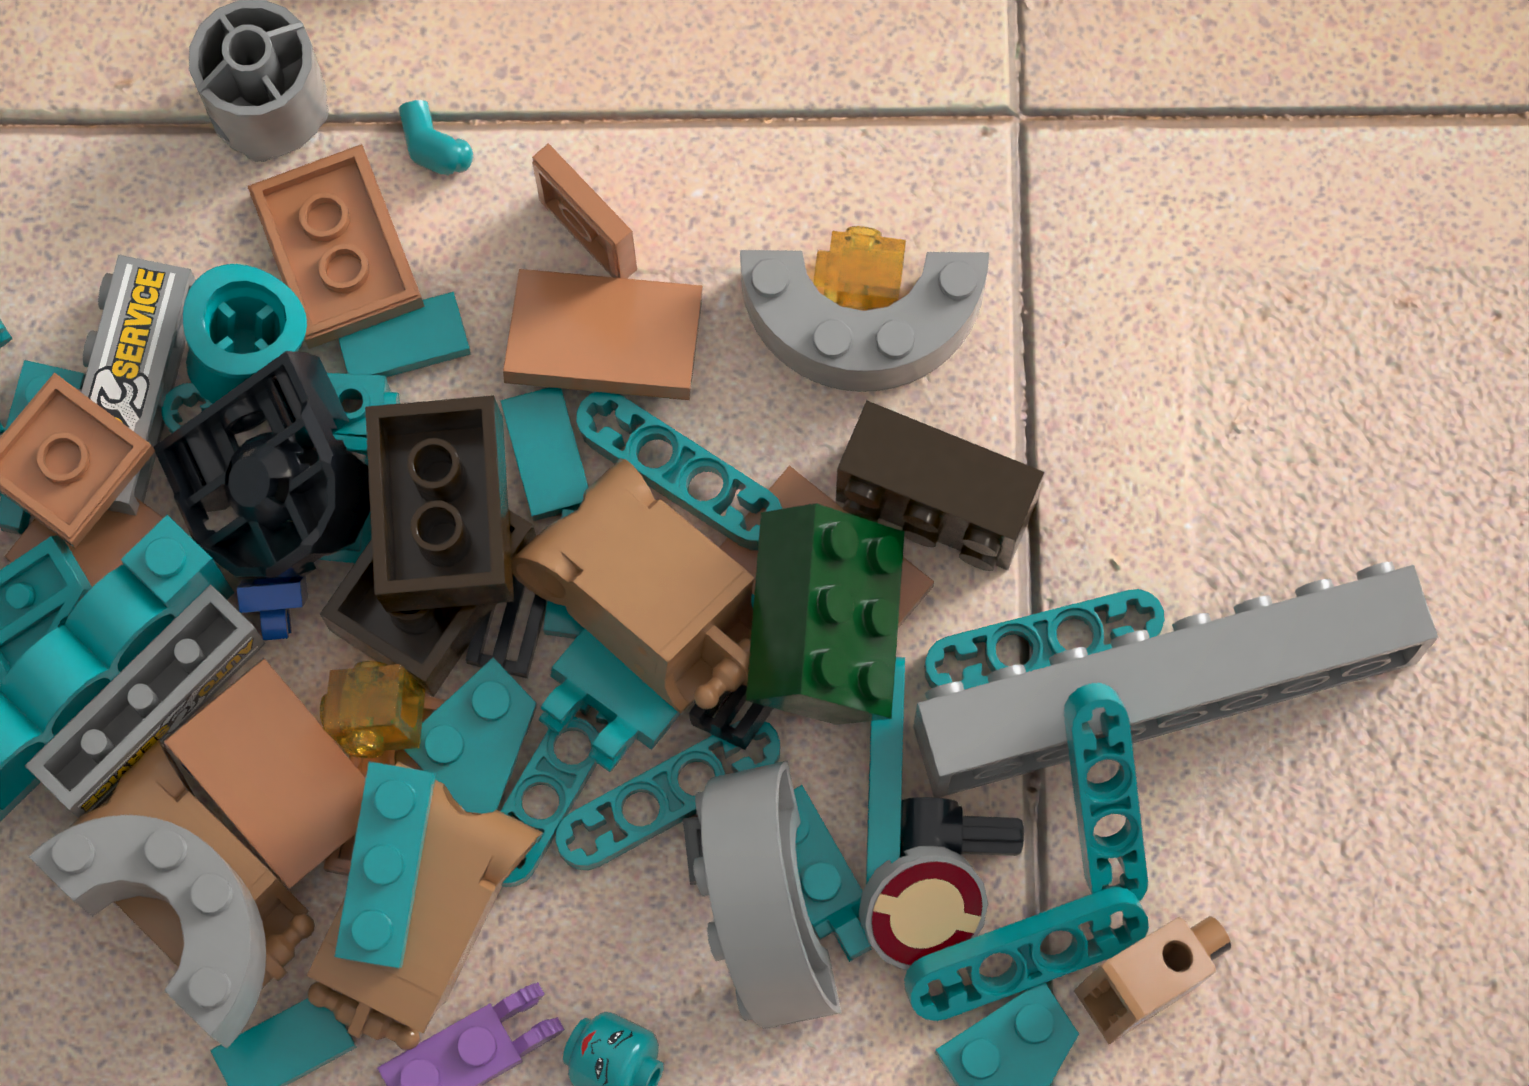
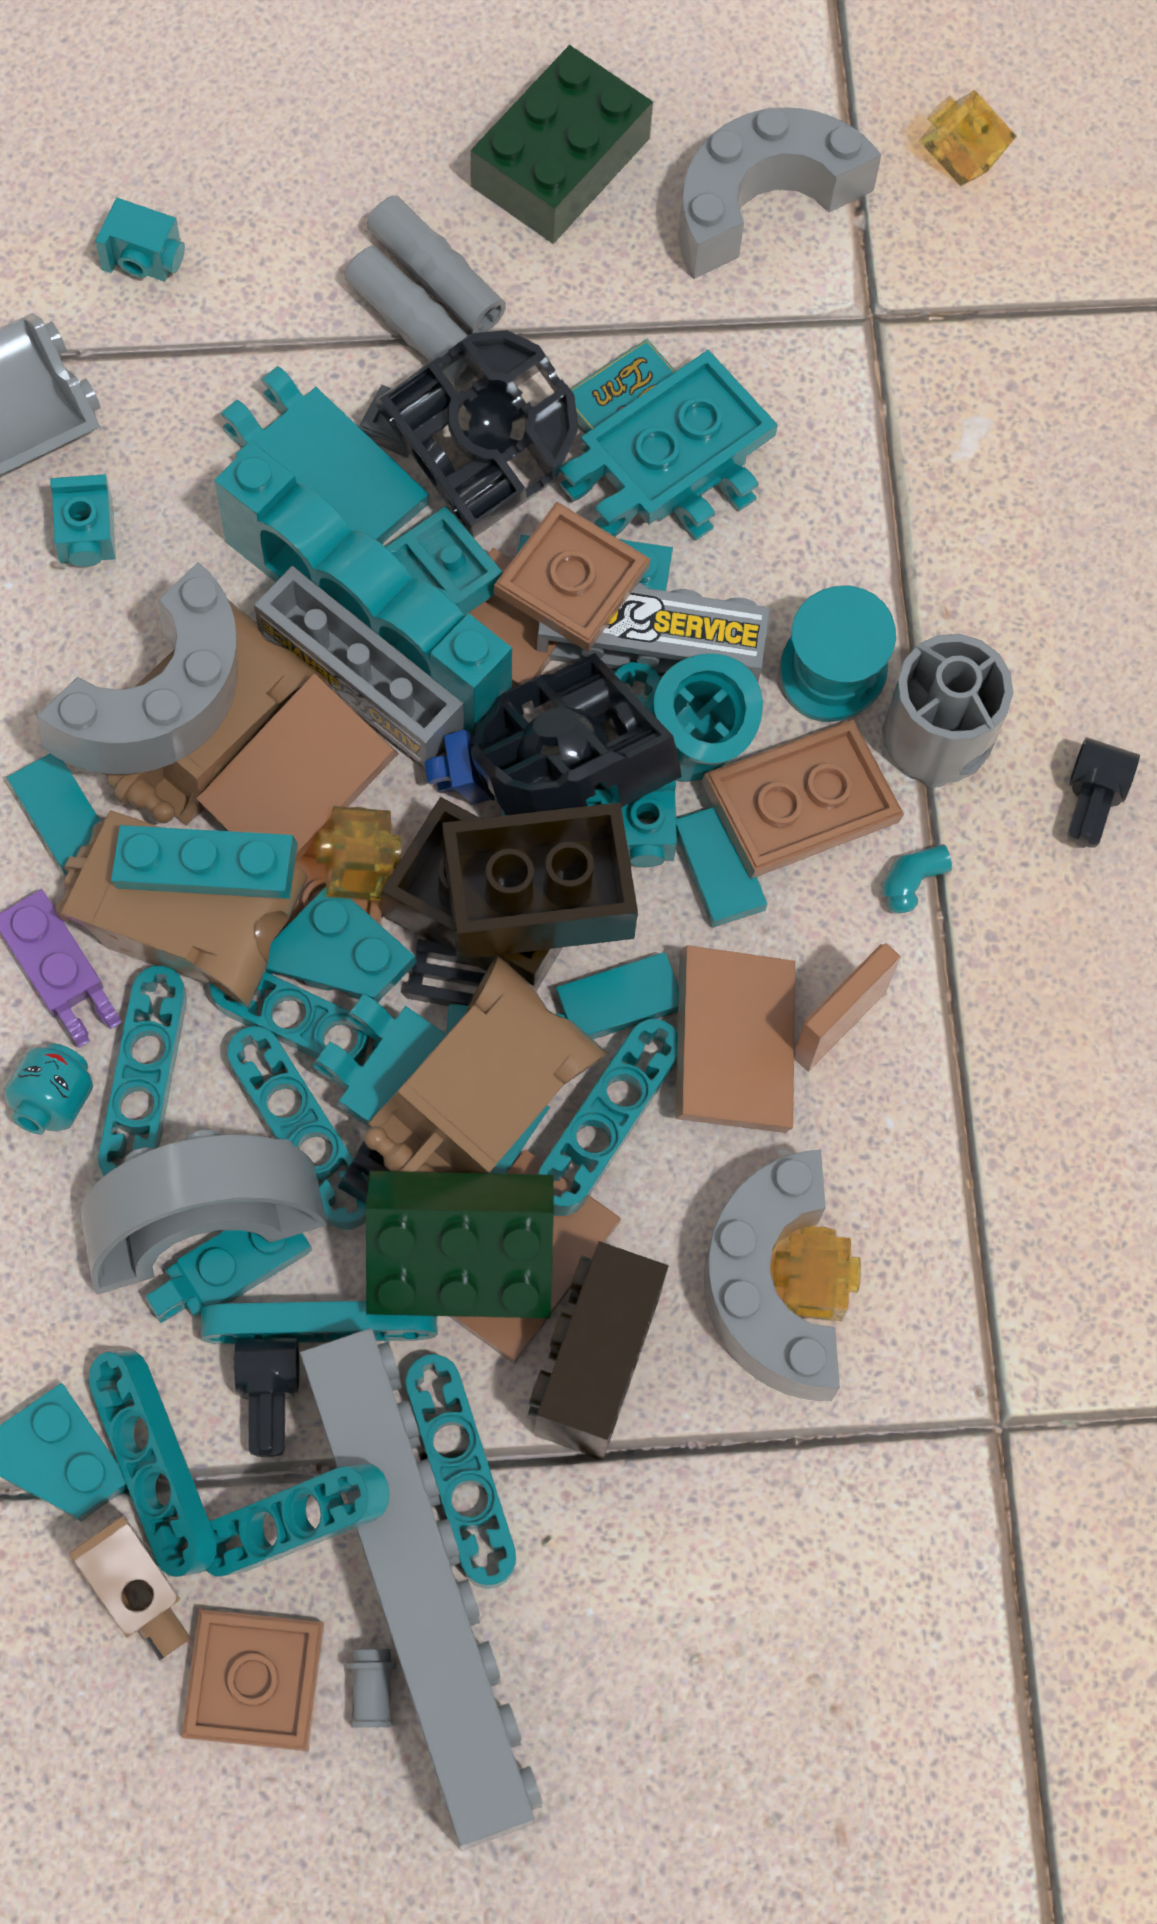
camera: 80 degrees right, 5 degrees down
(178, 189) = (837, 653): none -> teal hat
(603, 954) = (135, 1076): none -> teal beam
(922, 905) = (193, 1358): tile -> none
(1247, 860) = (253, 1680): none -> nougat tile
(1261, 740) = (371, 1687): none -> light grey pin

